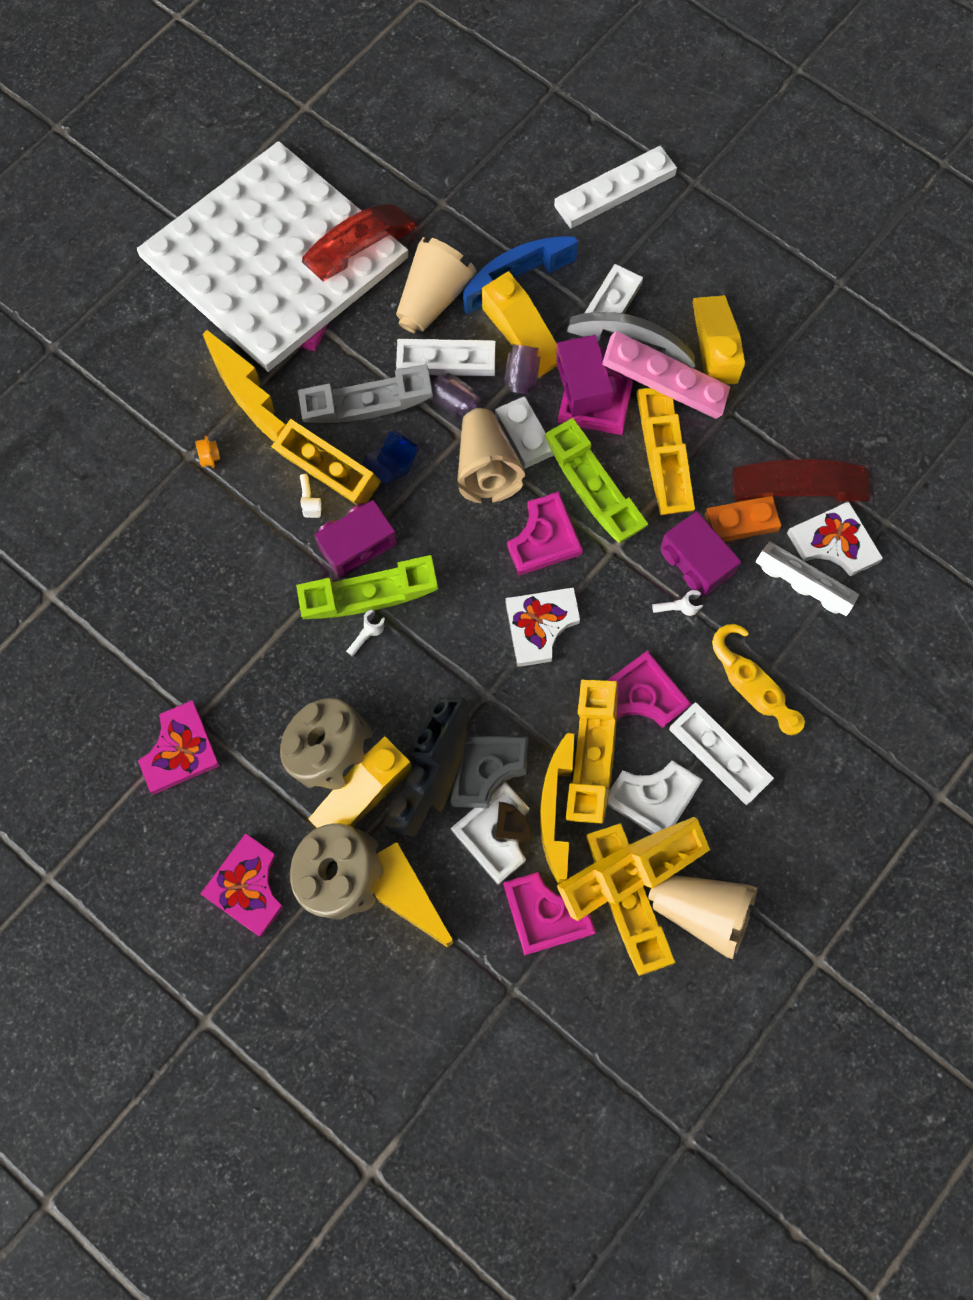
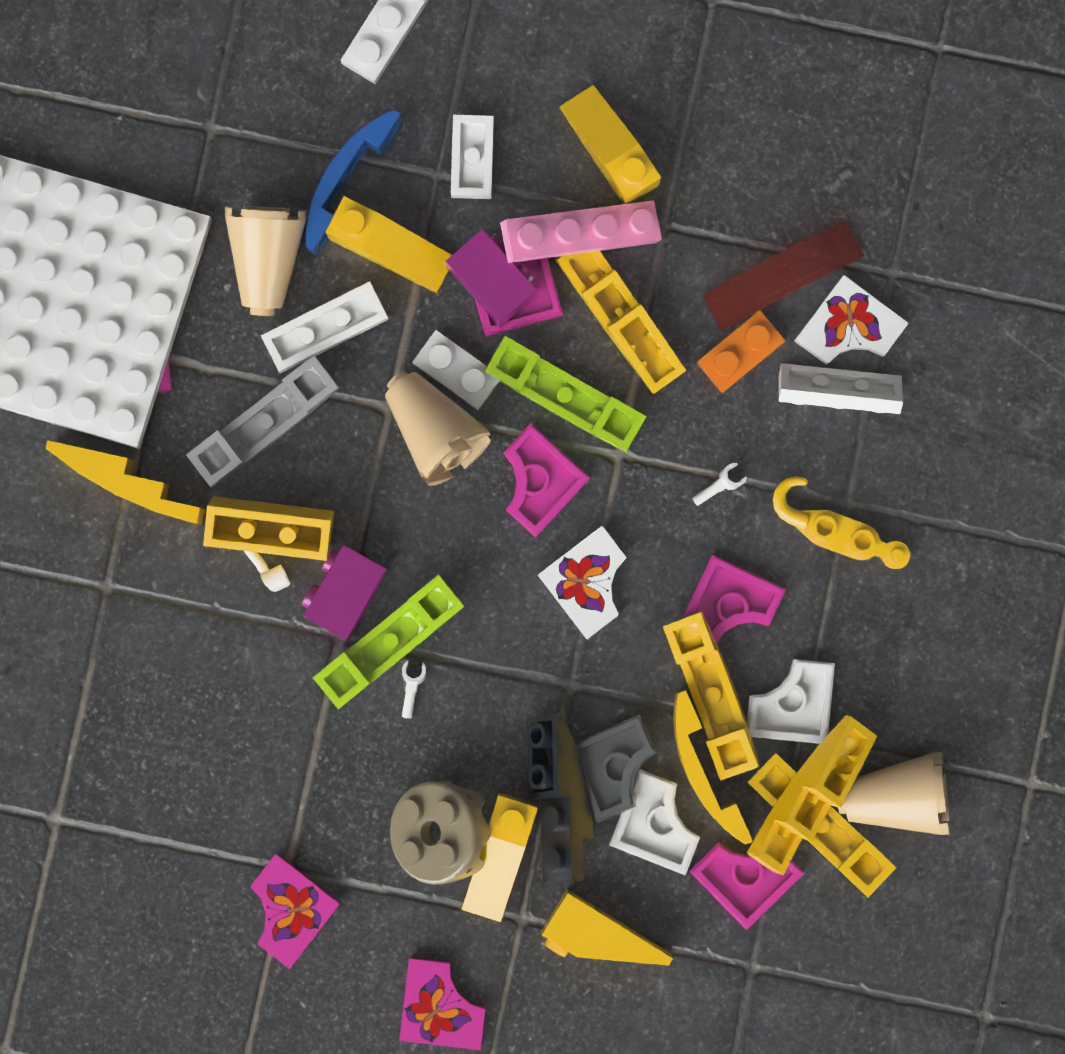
camera: 30 degrees left, 15 degrees up
(207, 452) = (127, 576): light orange plate -> none
(353, 235) = (148, 236): clear red slope -> none
(356, 873) = (543, 939): dark tan plate -> none
(392, 459) = (332, 482): clear blue bracket -> none
(454, 395) = (360, 371): clear purple brick -> none
(512, 825) = (670, 811): dark brown tile -> none
(522, 369) = (418, 301): clear purple brick -> none
(634, 327) = (518, 191): light grey slope -> none
(699, 554) = (716, 421): magenta brick -> none
(721, 753) = (840, 626): white plate -> none

